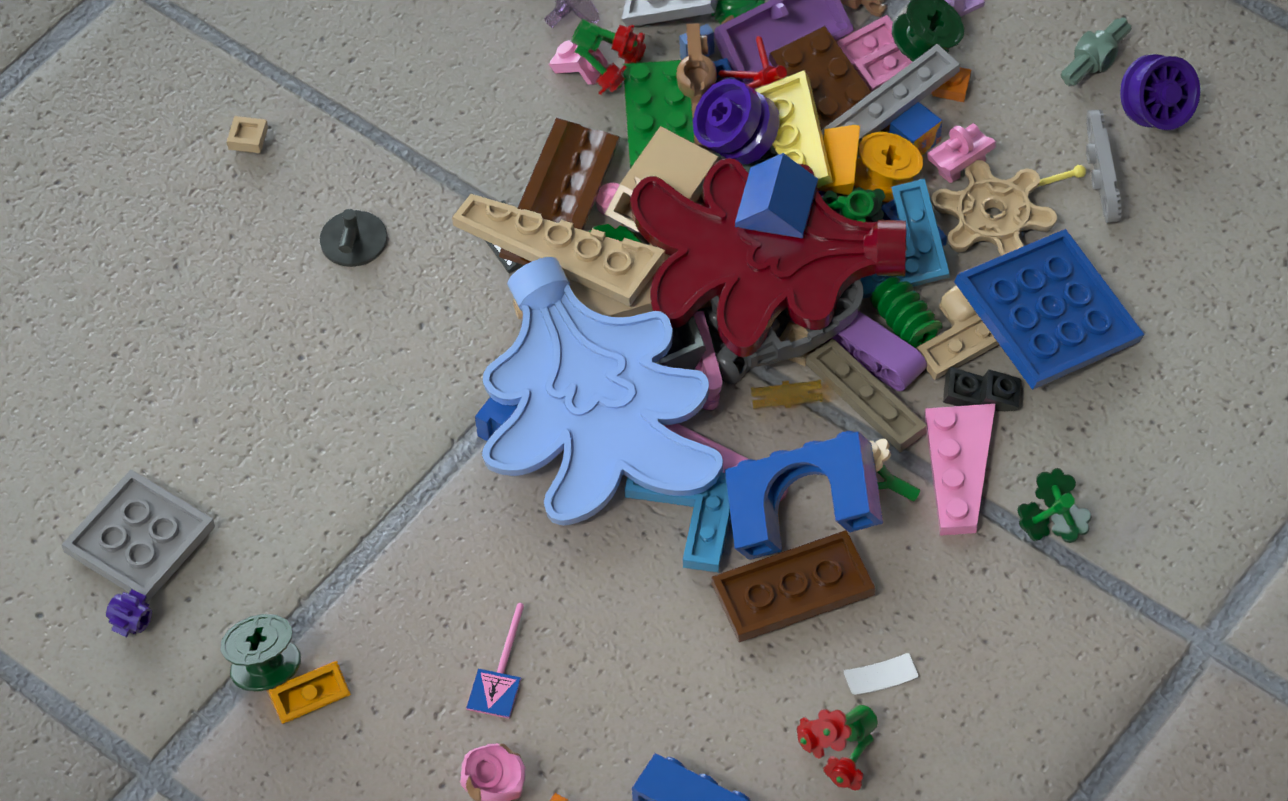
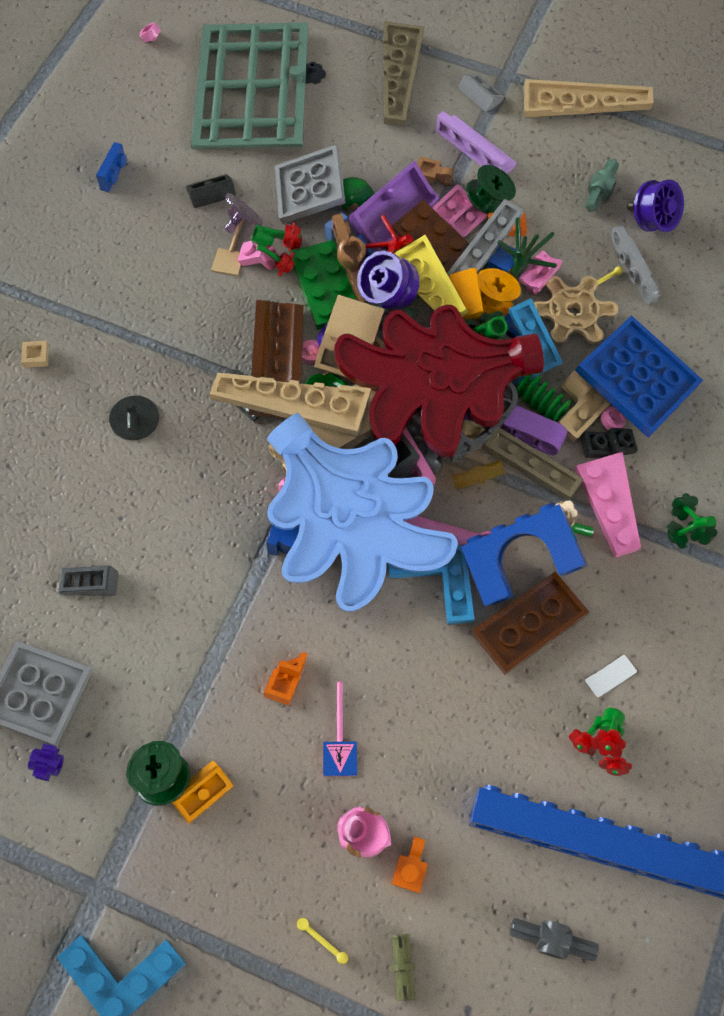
camera: 20 degrees left, 10 degrees up
(258, 432) = (104, 586): none -> dark grey slope
(453, 587) = (285, 679): none -> orange slope
(535, 60) = (227, 260): none -> tan piece
(777, 197) = (439, 334): blue slope -> none
(936, 124) = (523, 255): none -> dark green plant
(996, 359) = (612, 418): none -> bright pink tile

